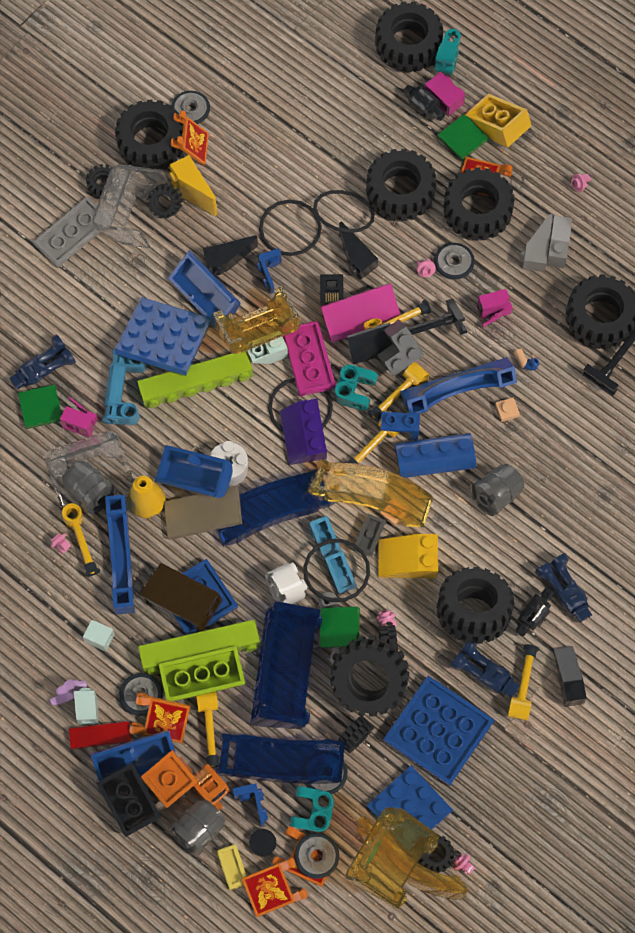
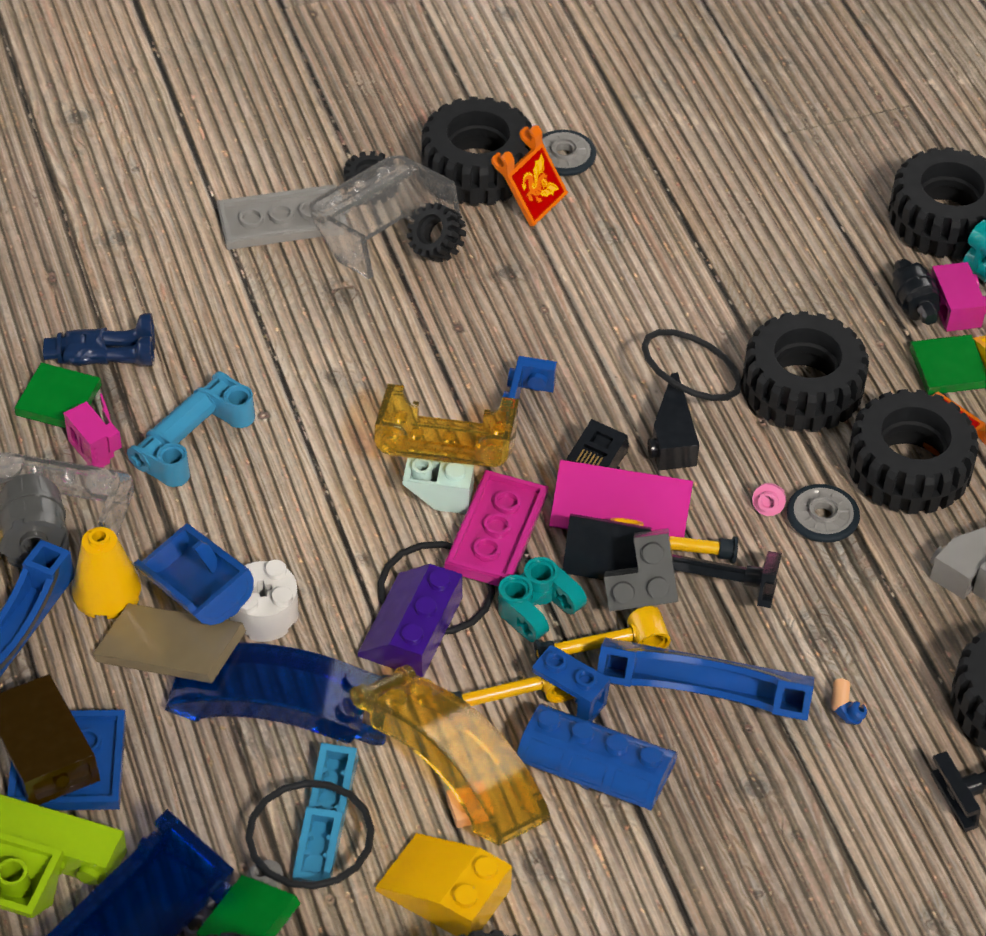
camera: 30 degrees right, 20 degrees down
(163, 336) = (299, 390): blue plate -> none
(192, 185) = (488, 228): yellow slope -> none
(200, 377) = (304, 468): lime brick -> none
(203, 288) = (407, 358): blue container -> none
(226, 255) = (476, 340): black slope -> none
(285, 202) = (601, 318): black piece -> none
(286, 584) = (215, 808): white brick -> none
(370, 534) = (407, 816): dark grey plate -> none
(495, 305) = (844, 599): dark pink piece -> none
(497, 489) = (664, 856): dark grey piece -> none
(507, 409) = (766, 757): light nougat plate -> none

